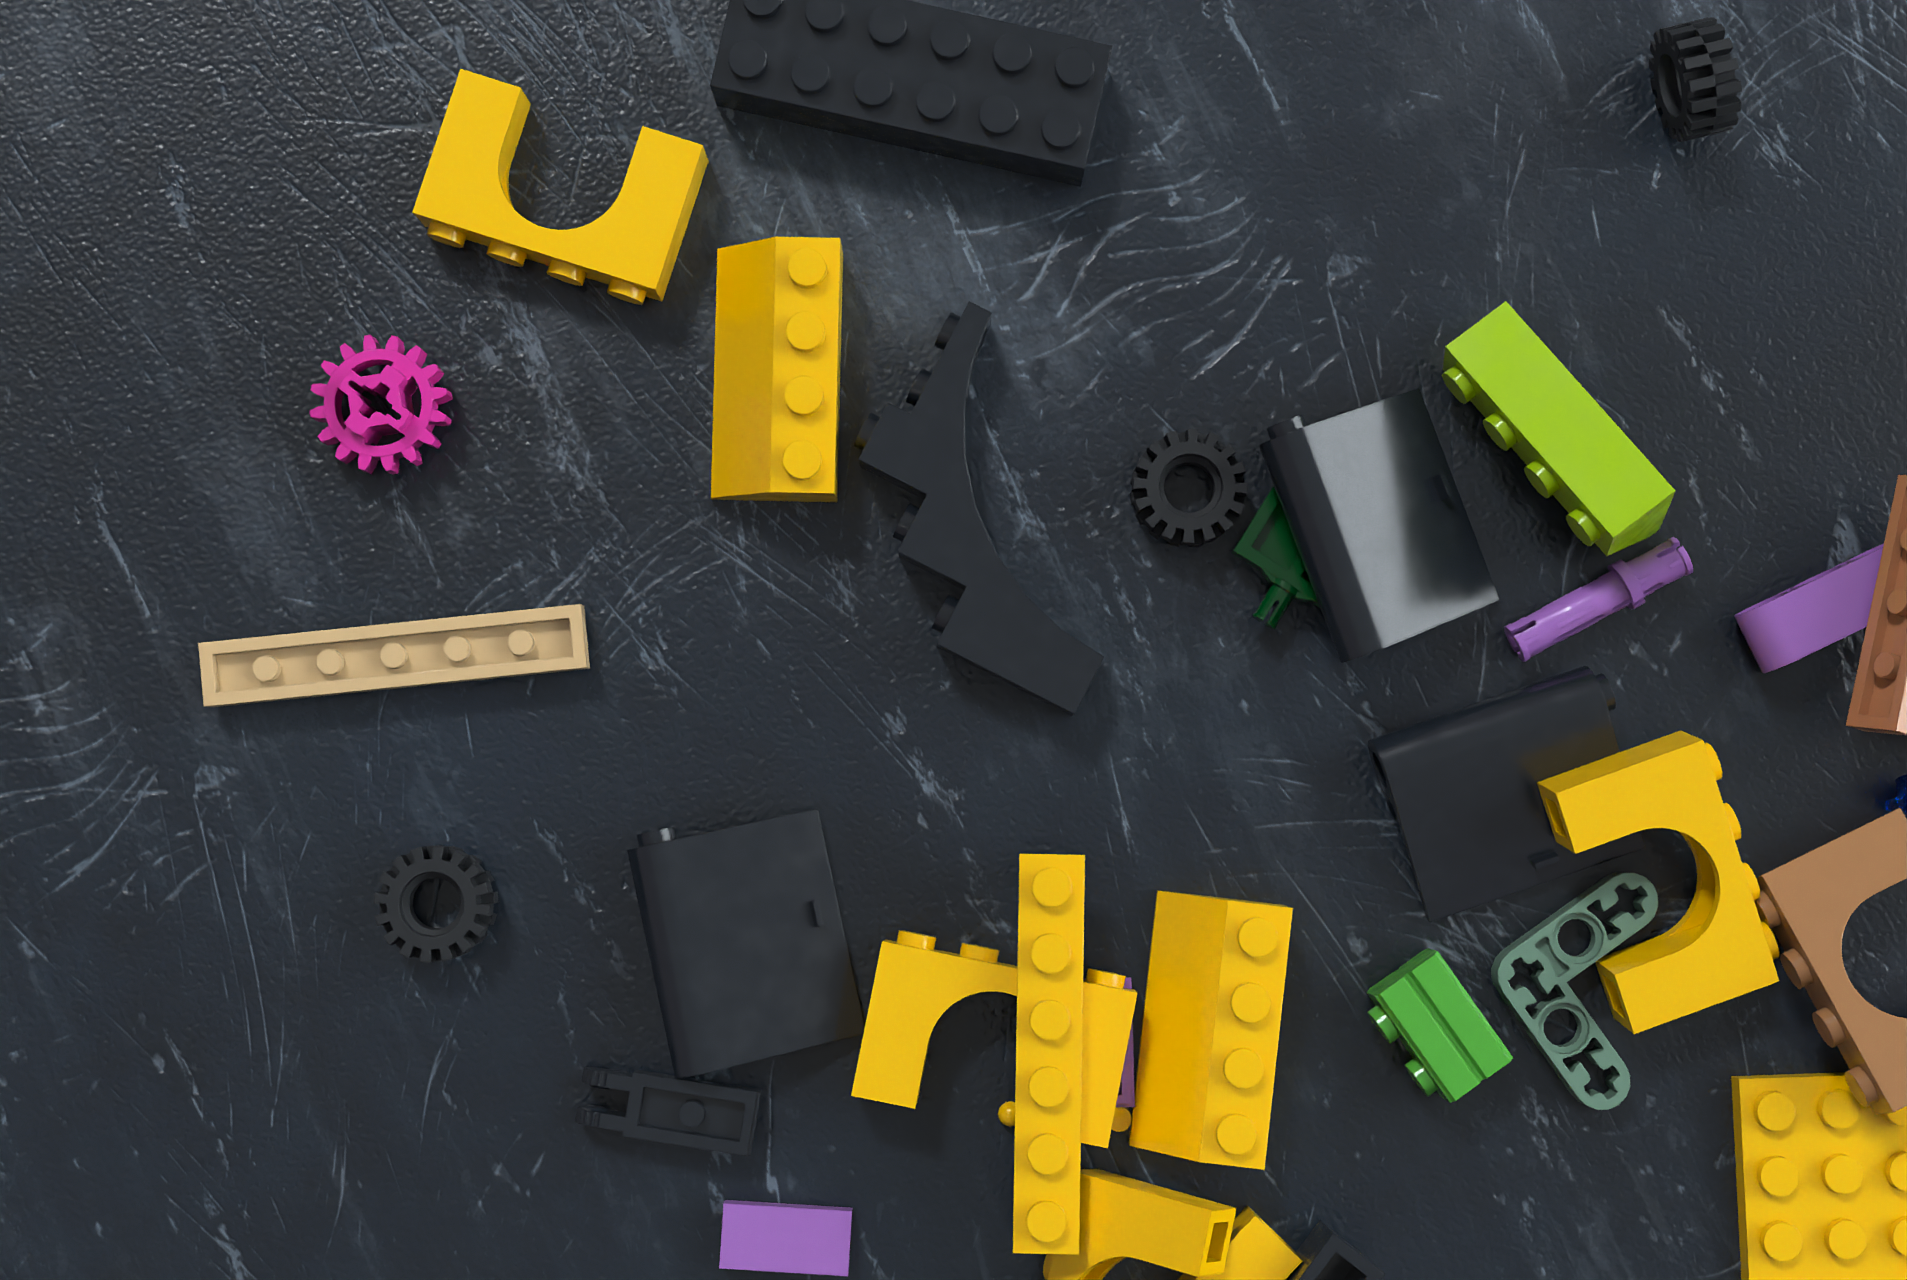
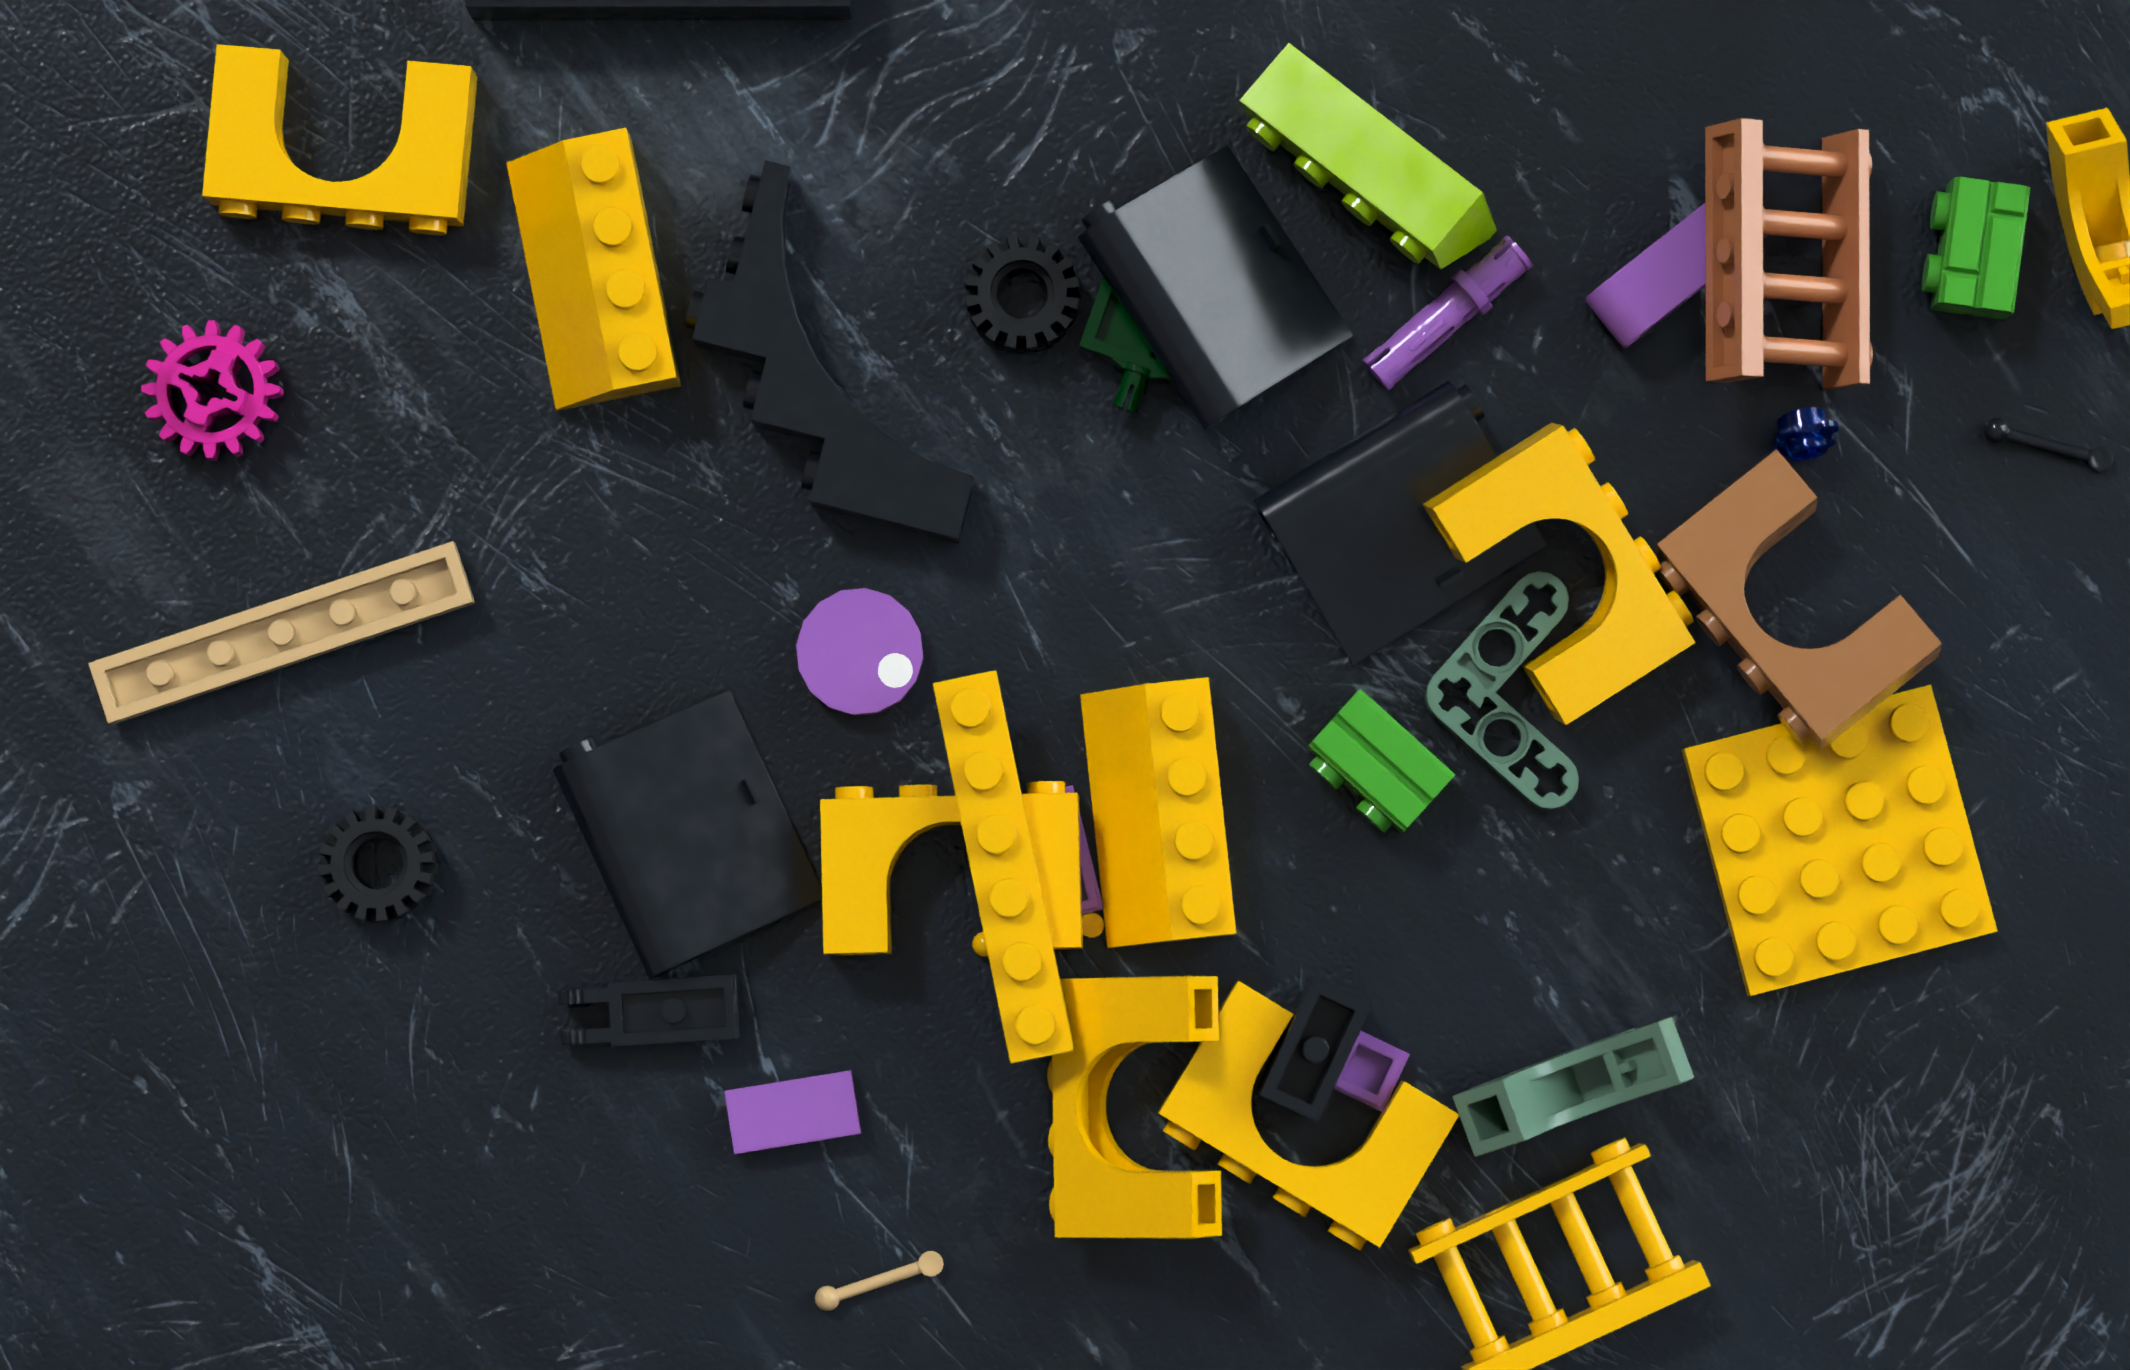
camera: 10 degrees left, 0 degrees up
(952, 800) = (859, 651): none -> medium lavender tile

